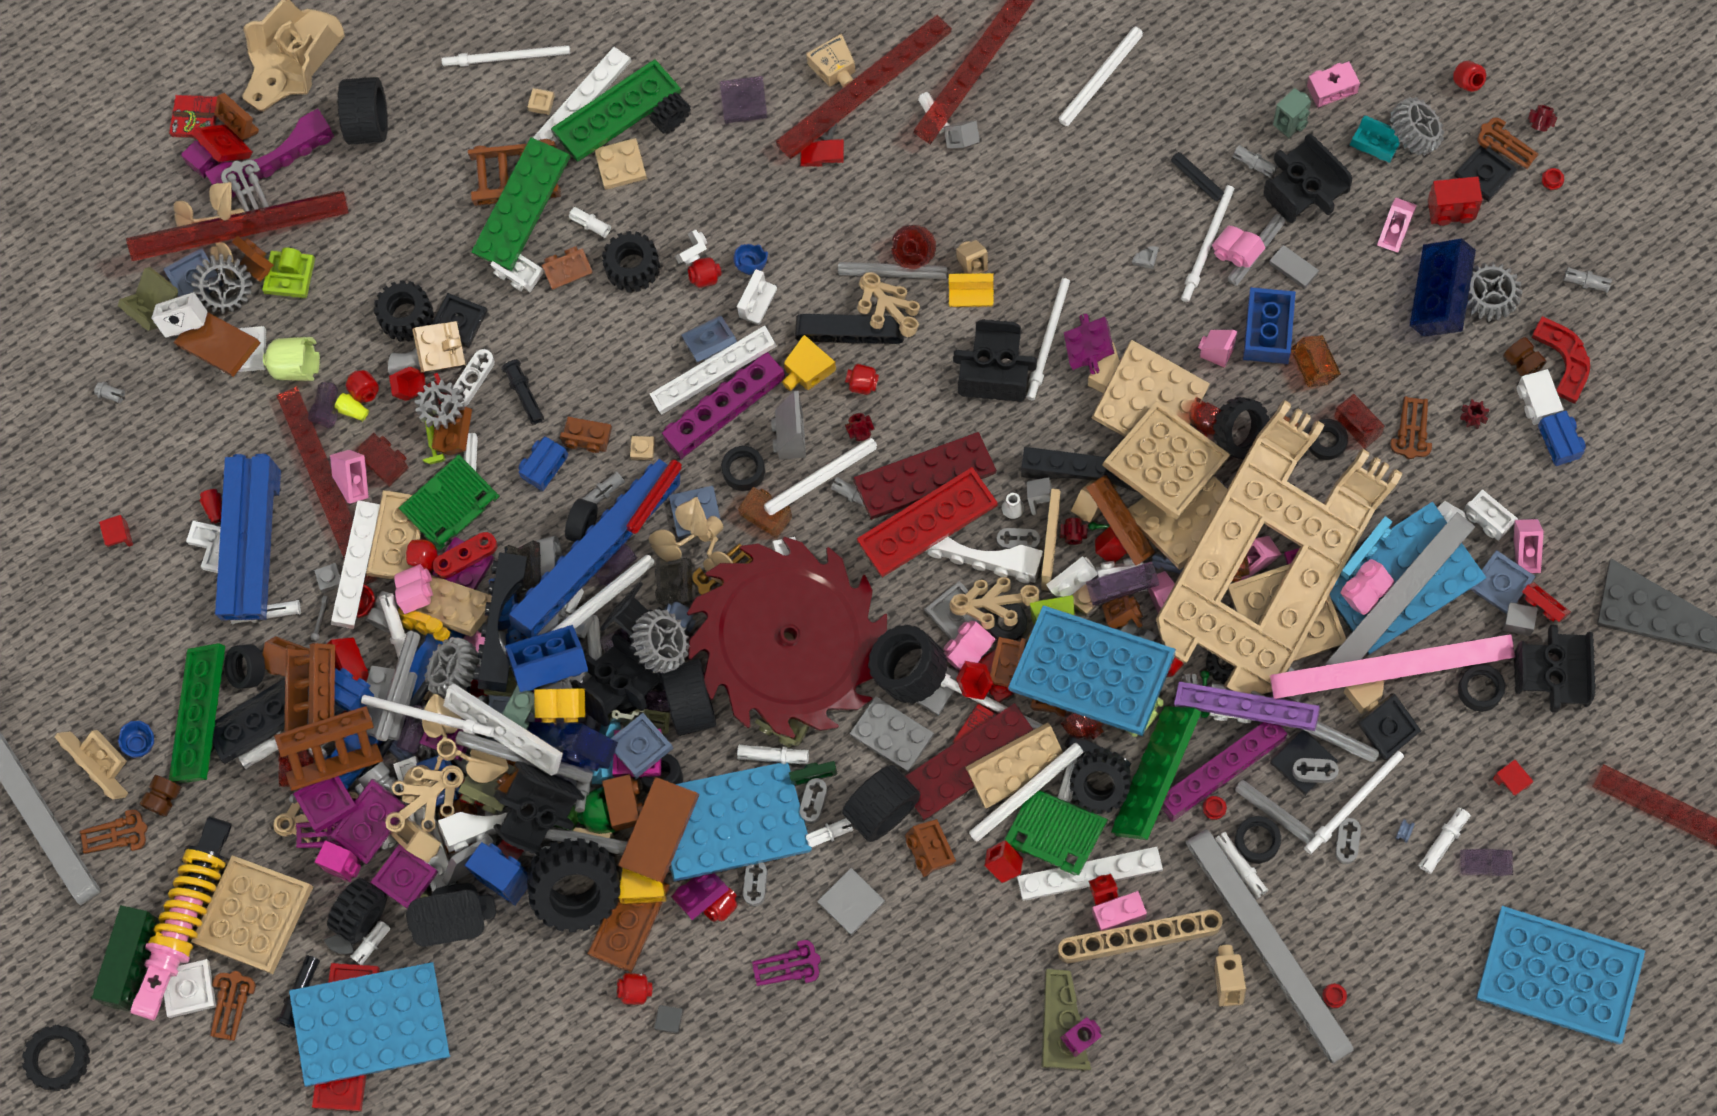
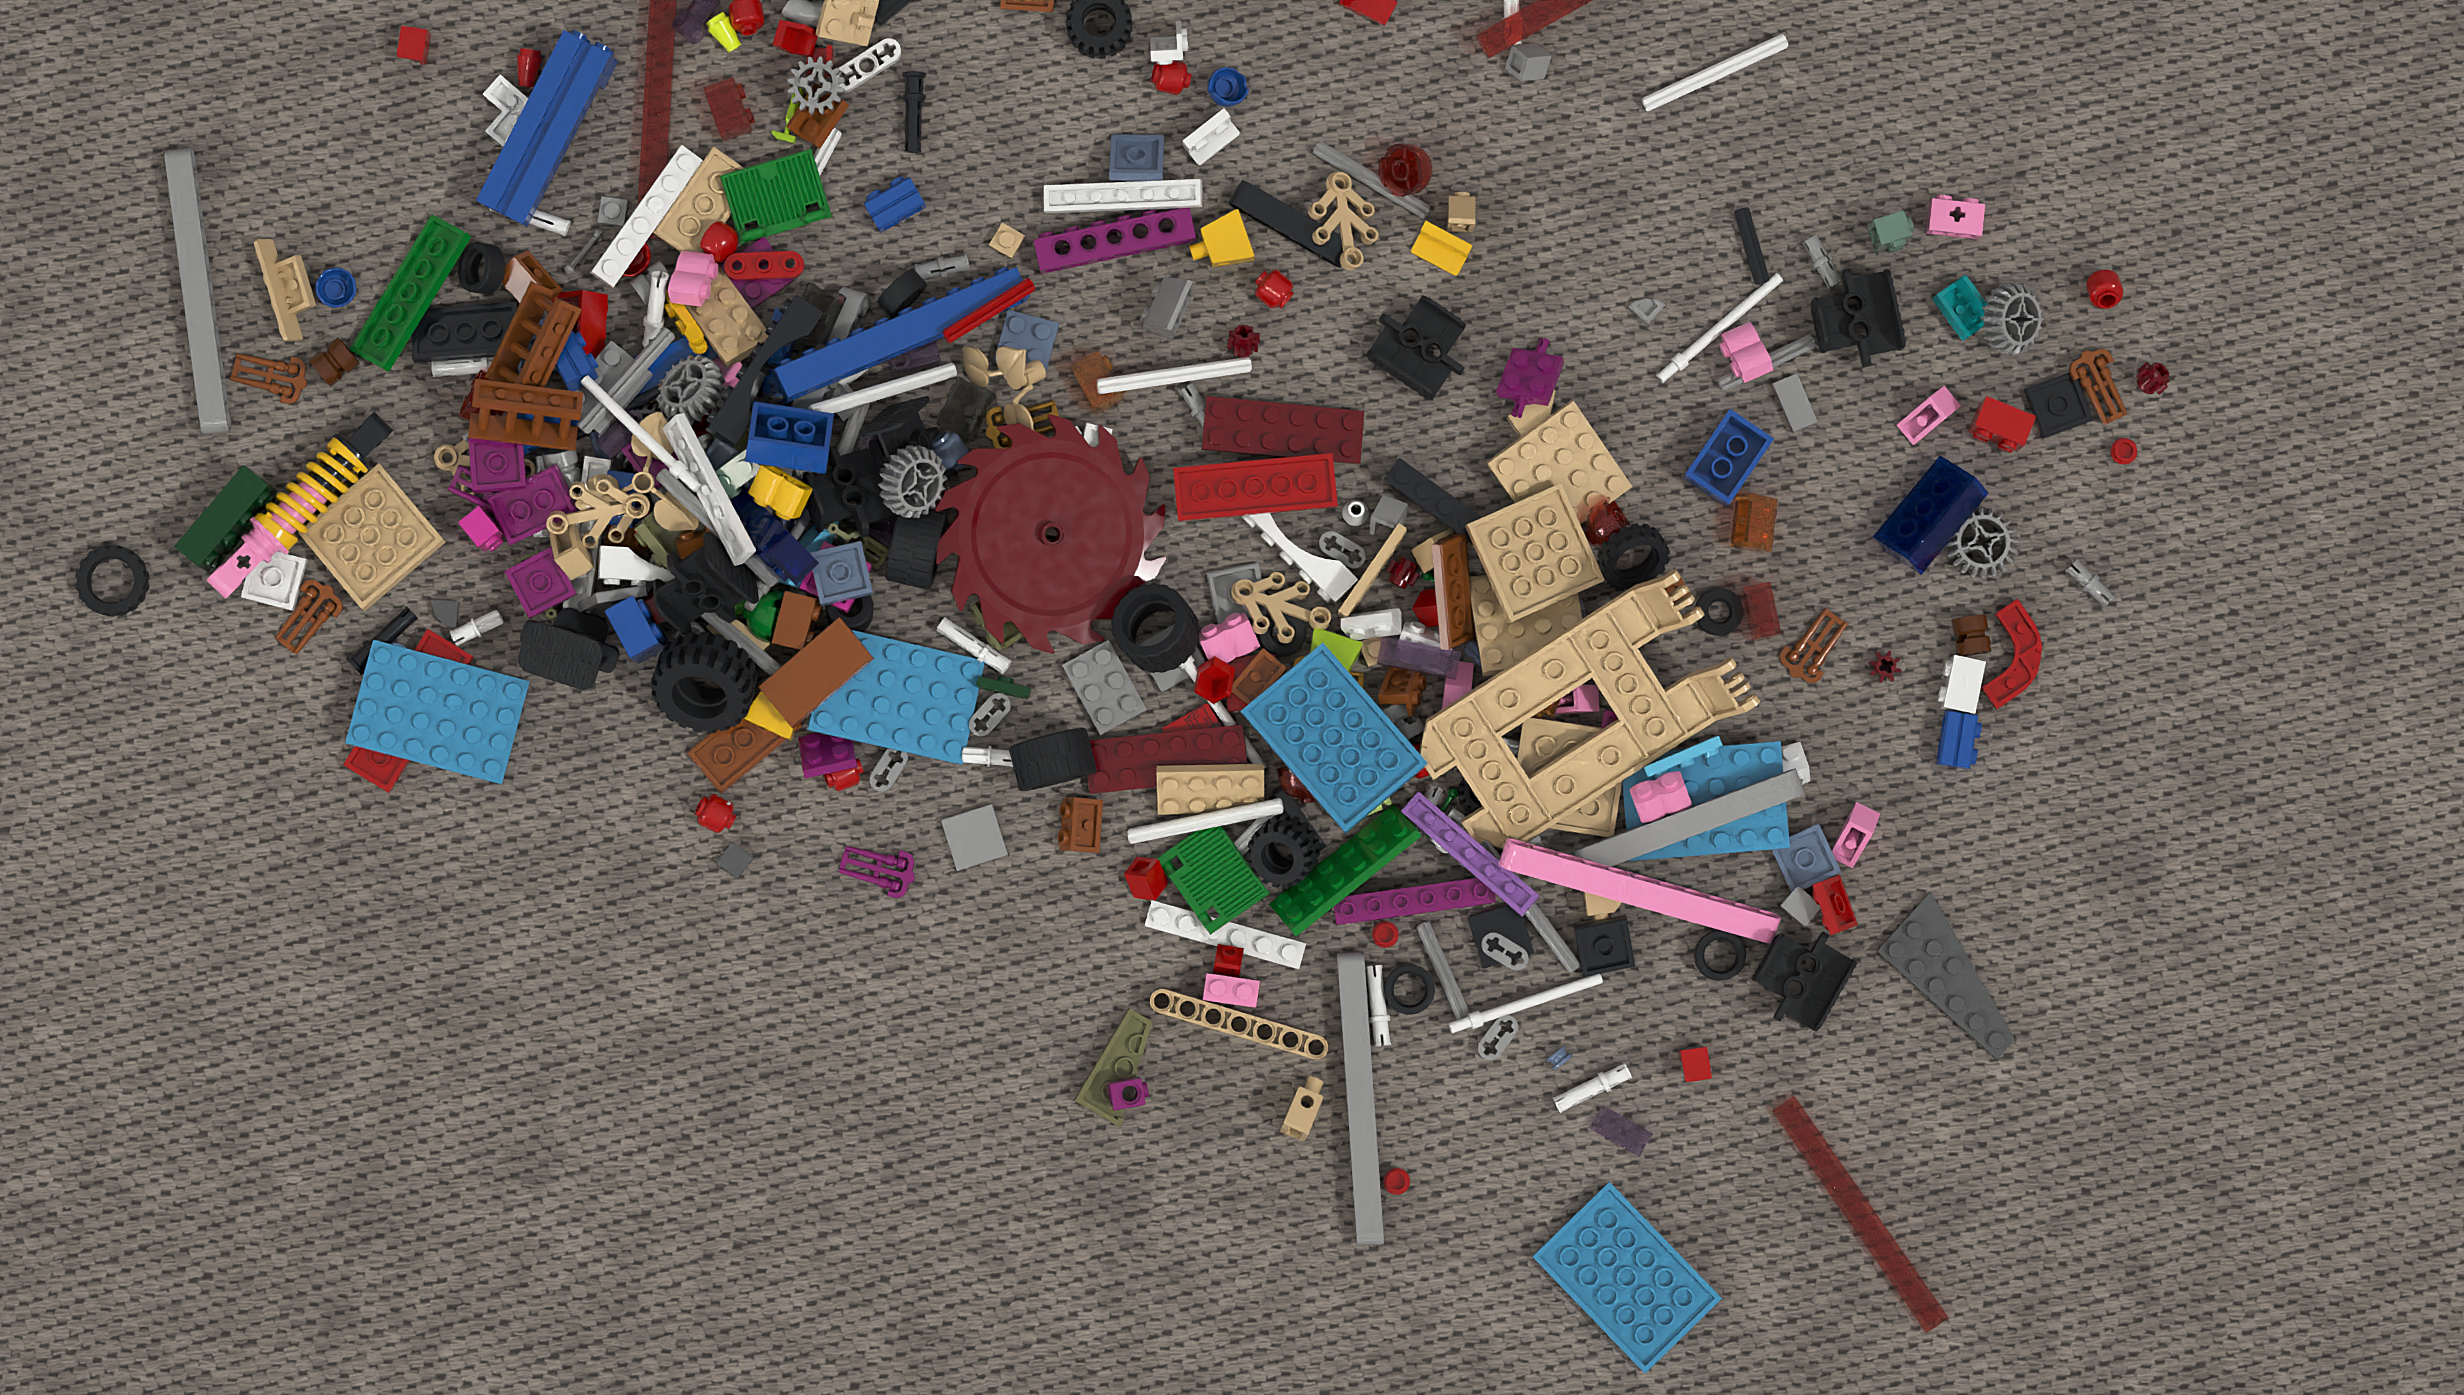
camera: 20 degrees right, 15 degrees up
(350, 475) = (687, 111): bright pink slope -> none
(356, 910) = (477, 591): black tyre -> none
(586, 434) = (956, 194): dark orange bracket -> none
(738, 452) = (1085, 306): black tyre -> none
(1036, 376) = (1457, 382): white bar -> none
(1218, 346) = (1661, 451): bright pink slope -> none
(1489, 515) = (1835, 781): white bracket -> none

